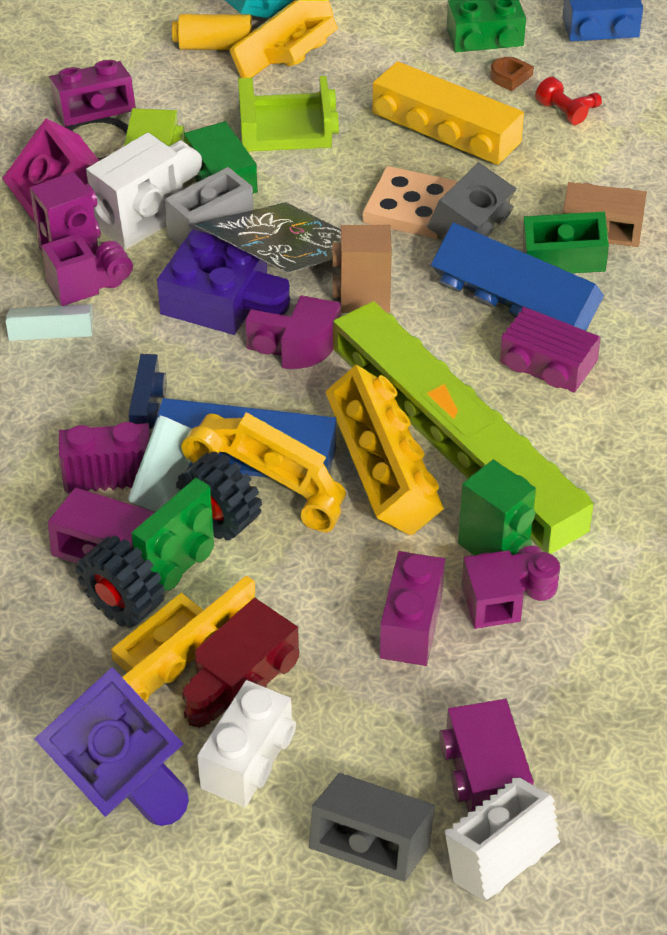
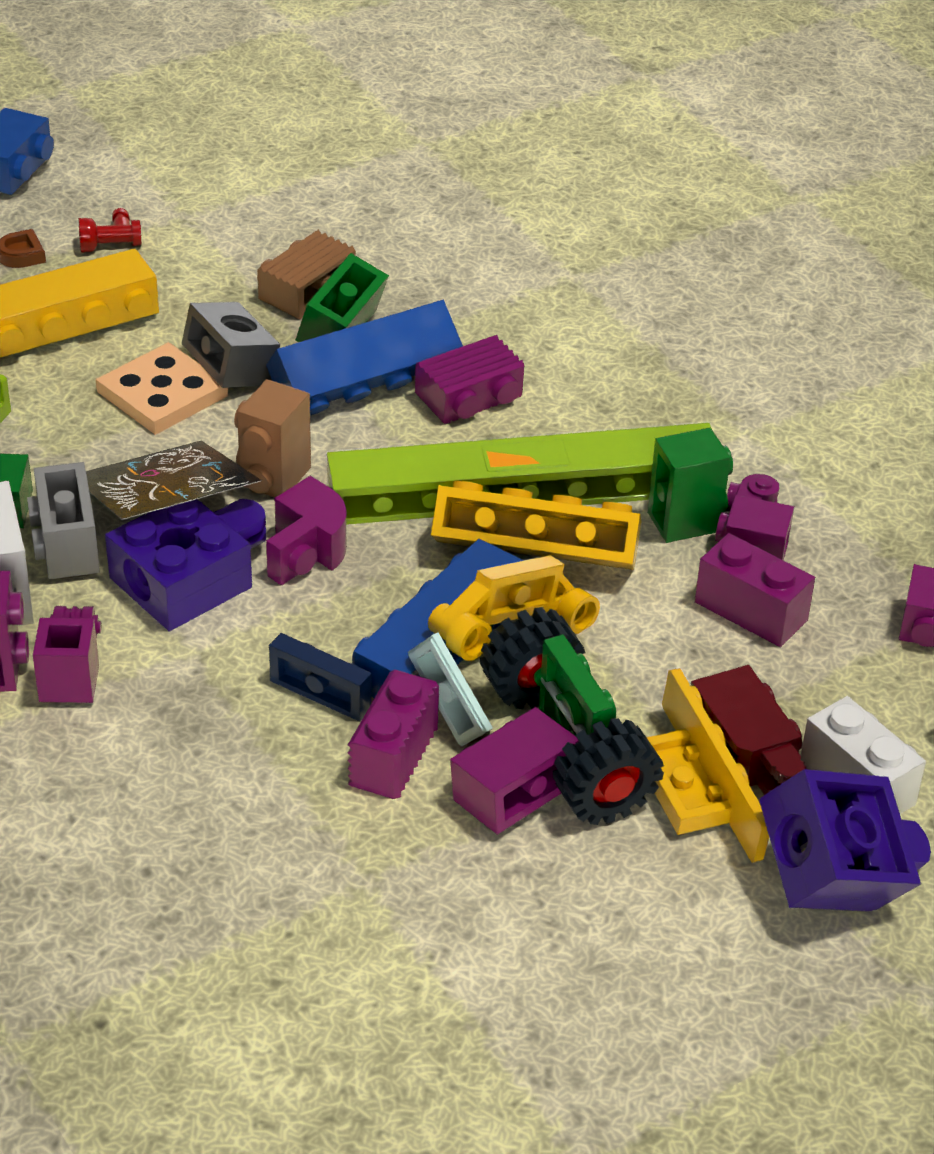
camera: 65 degrees left, 5 degrees down
(49, 322) = (112, 718): light aqua slope -> none

